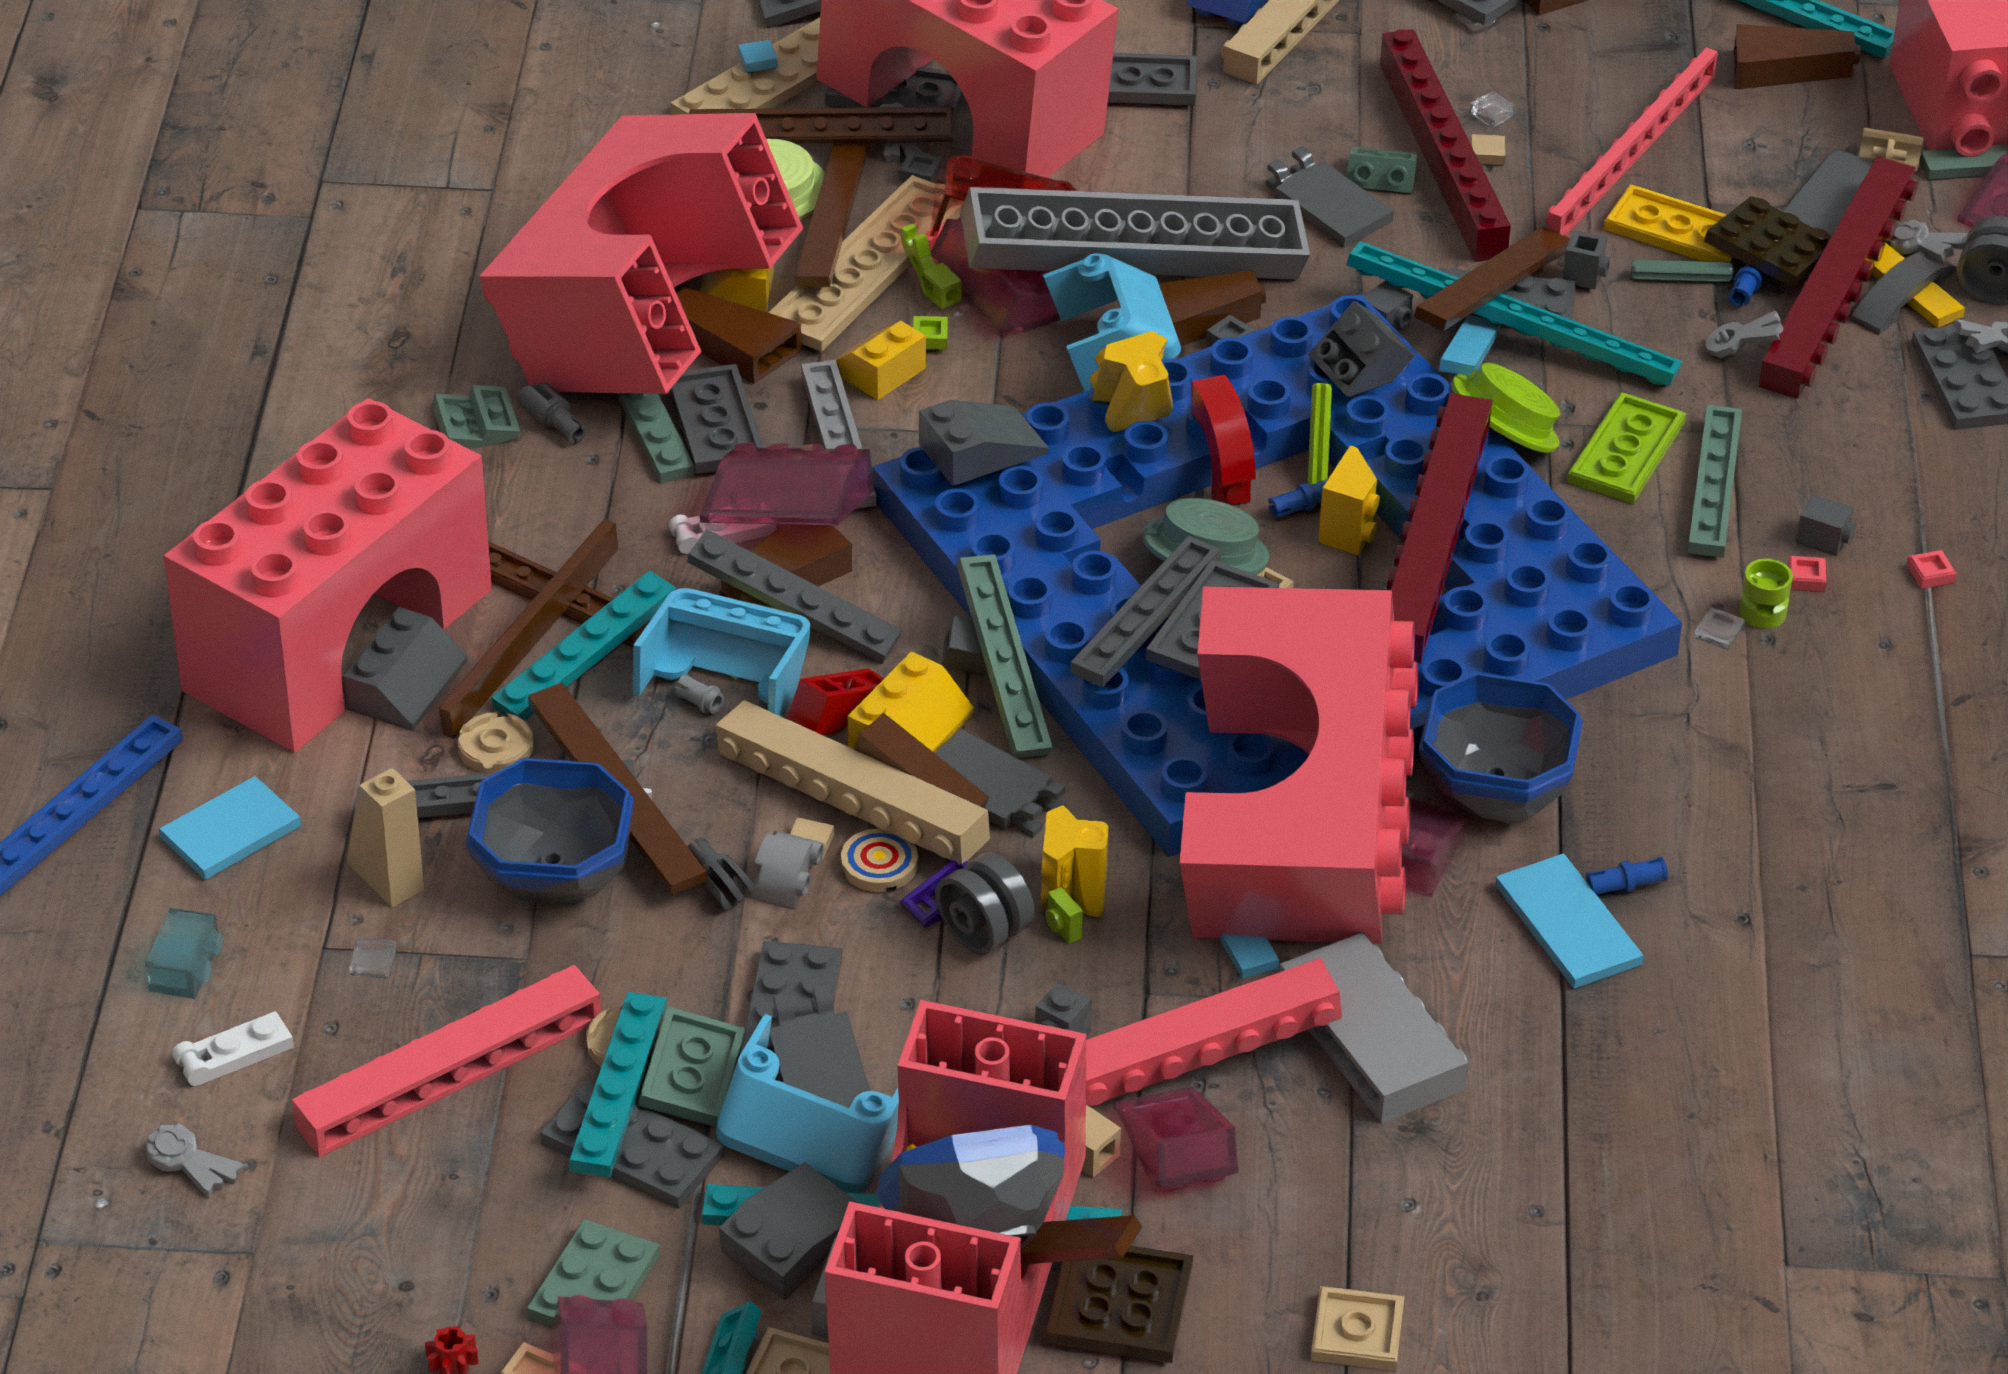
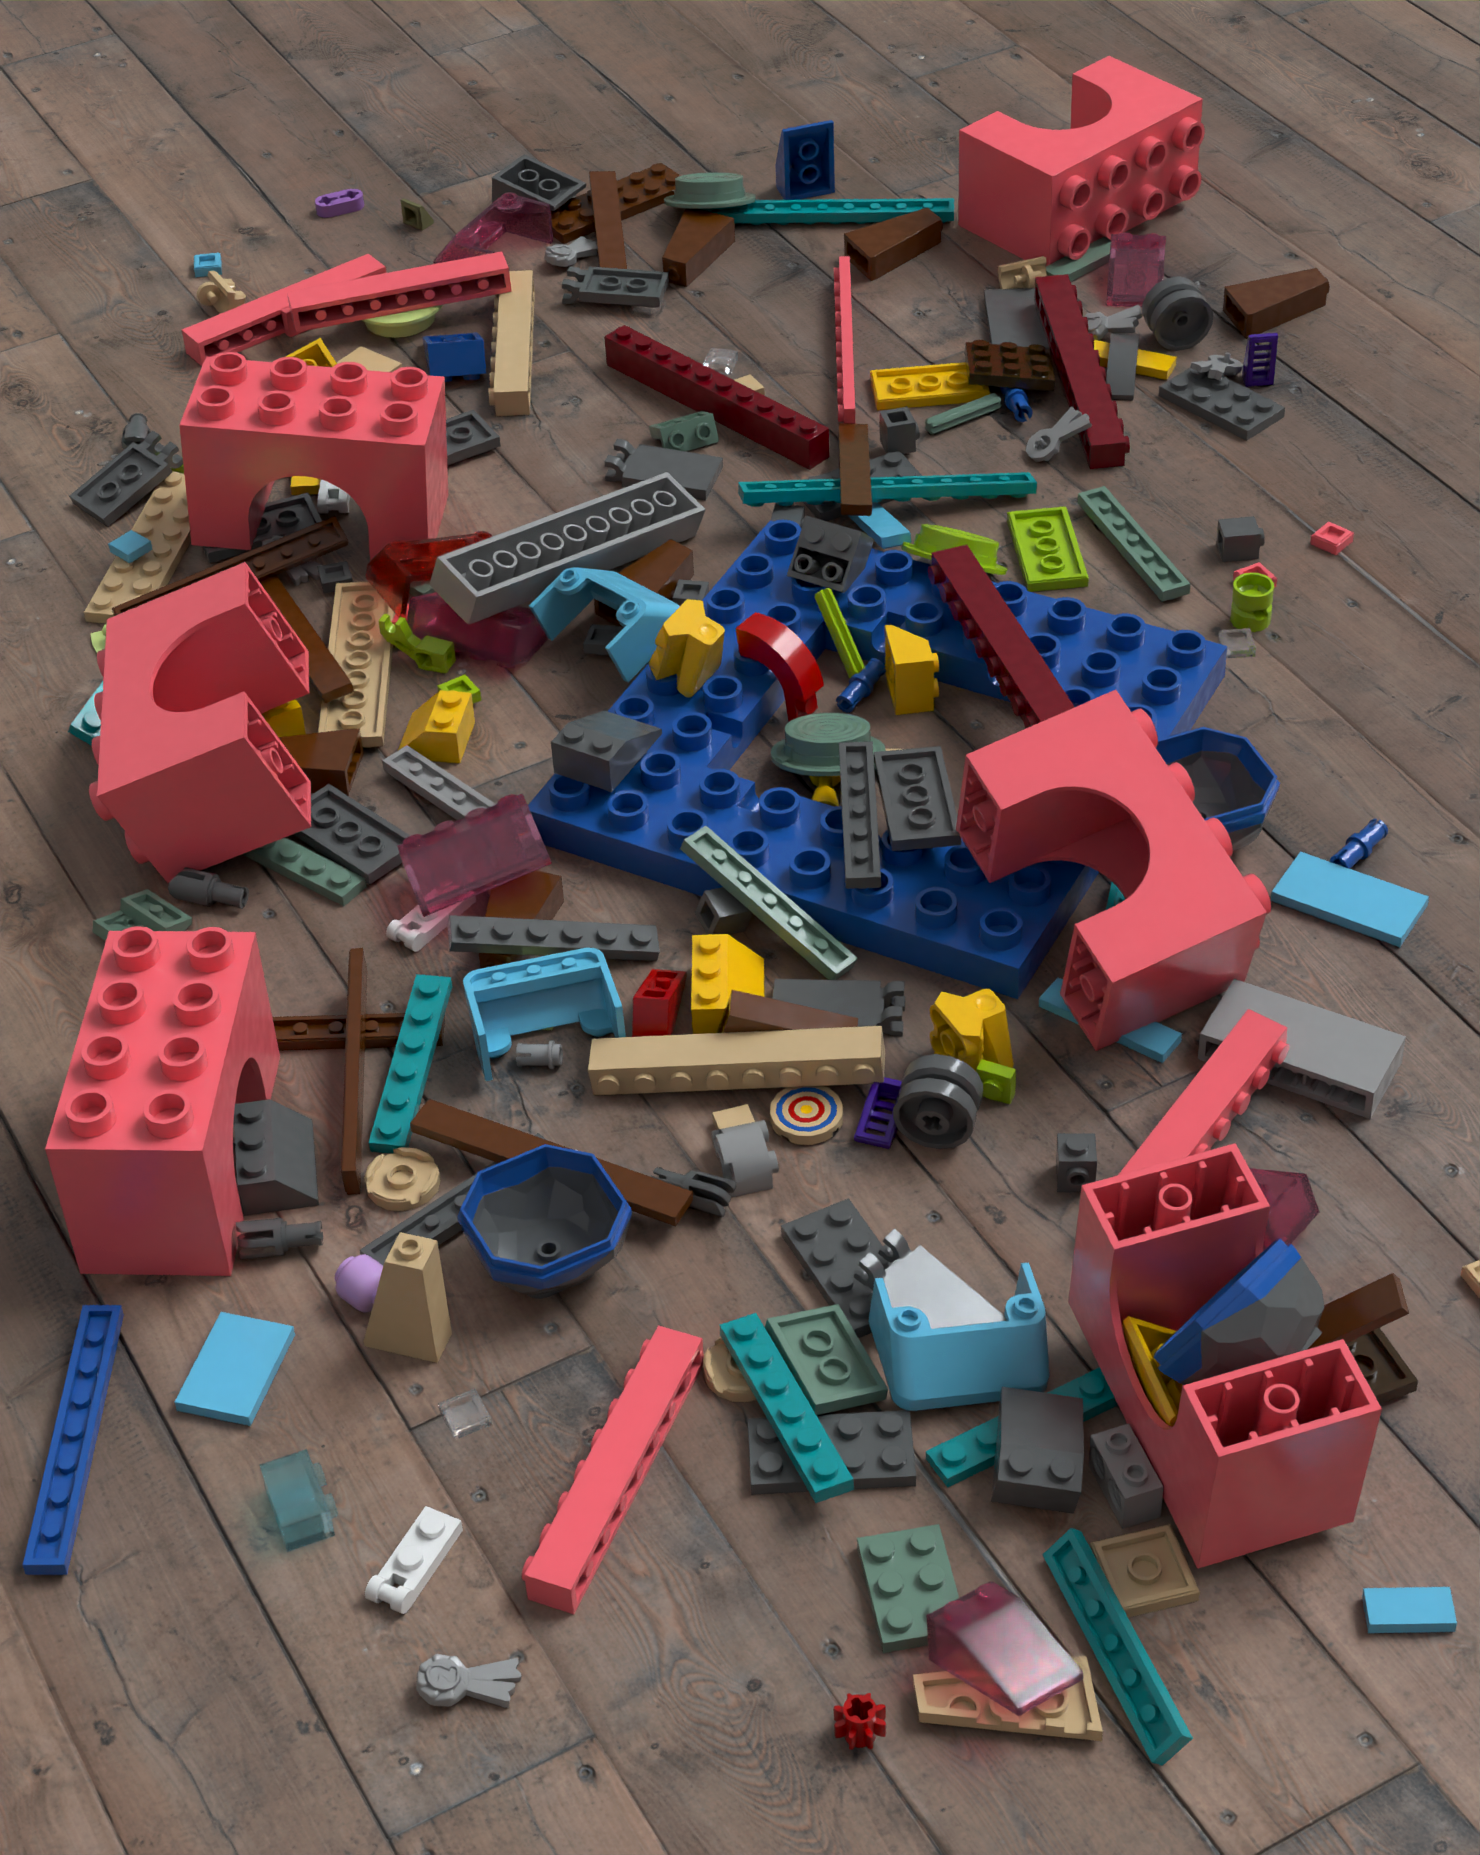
camera: 30 degrees left, 0 degrees up
(348, 737) = (275, 1237): none -> dark grey arm

